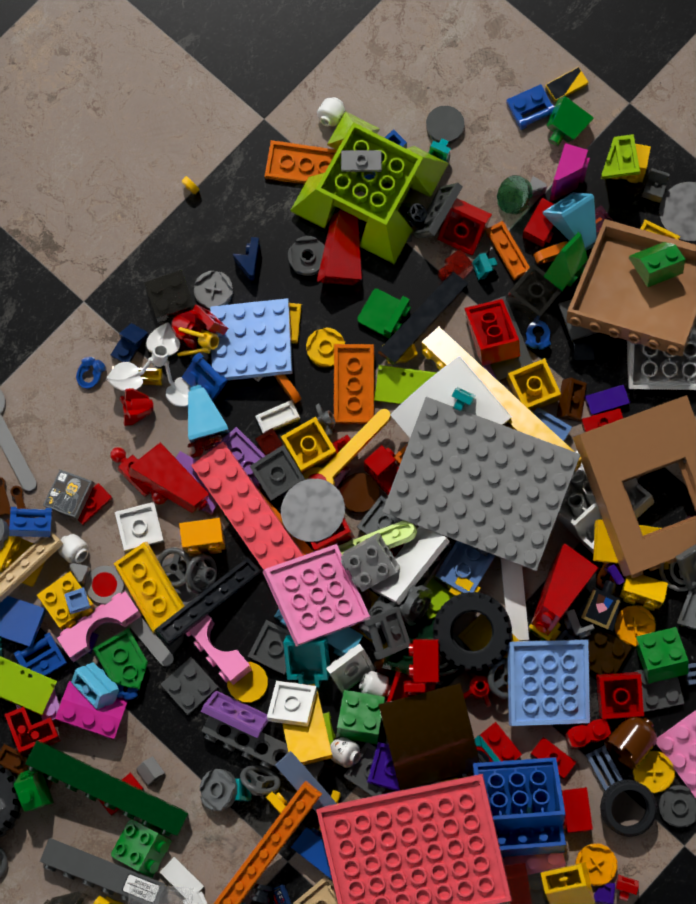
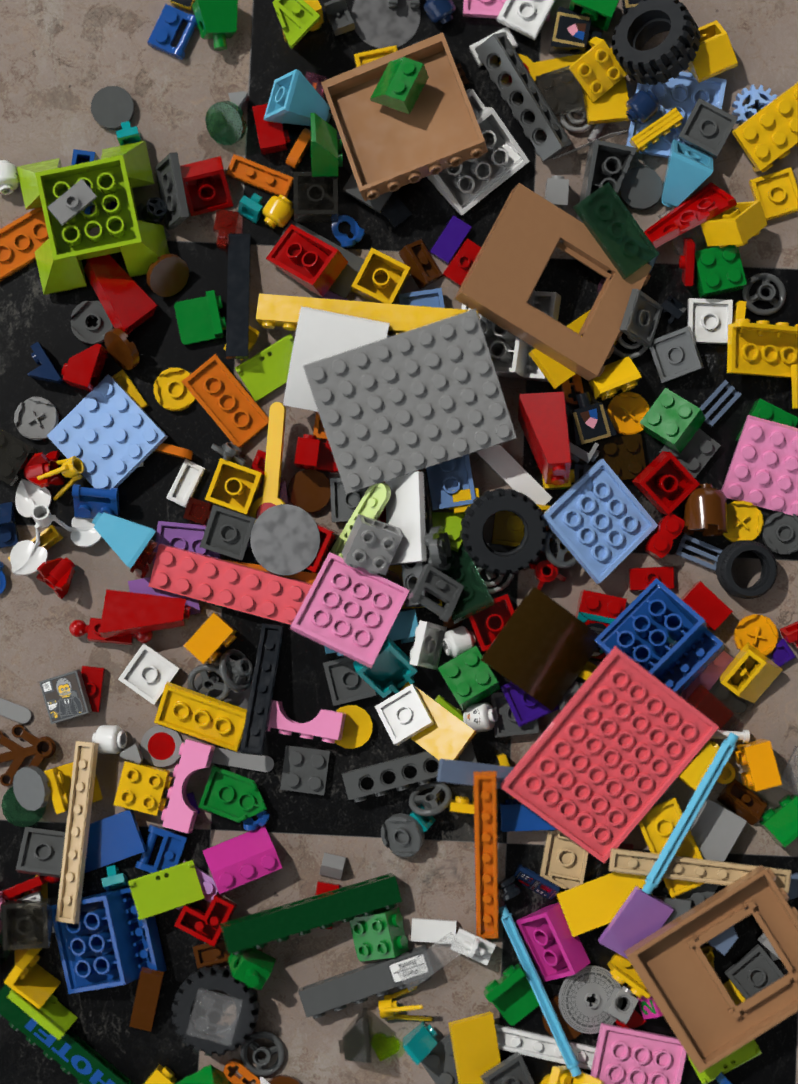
camera: 45 degrees left, 10 degrees up
(30, 526) = (58, 752): blue plate -> none
(77, 600) = (153, 781): medium blue tile -> none
(95, 685) = (228, 837): medium azure brick -> none
(208, 318) = (55, 448): red plate -> none
(235, 714) = (364, 762): medium lavender tile -> none
(276, 281) = (85, 368): none -> red slope
(311, 289) = (120, 349): none -> reddish brown tile
(386, 265) = (168, 275): none -> reddish brown tile
(414, 688) = (496, 619): red plate -> none
(425, 660) = (487, 589): red brick -> none
(462, 397) = (335, 341): teal tile -> none
(500, 283) = (278, 211): none -> yellow head
(570, 171) = (257, 63): dark pink slope -> none
(612, 570) = (573, 383): dark purple tile -> none

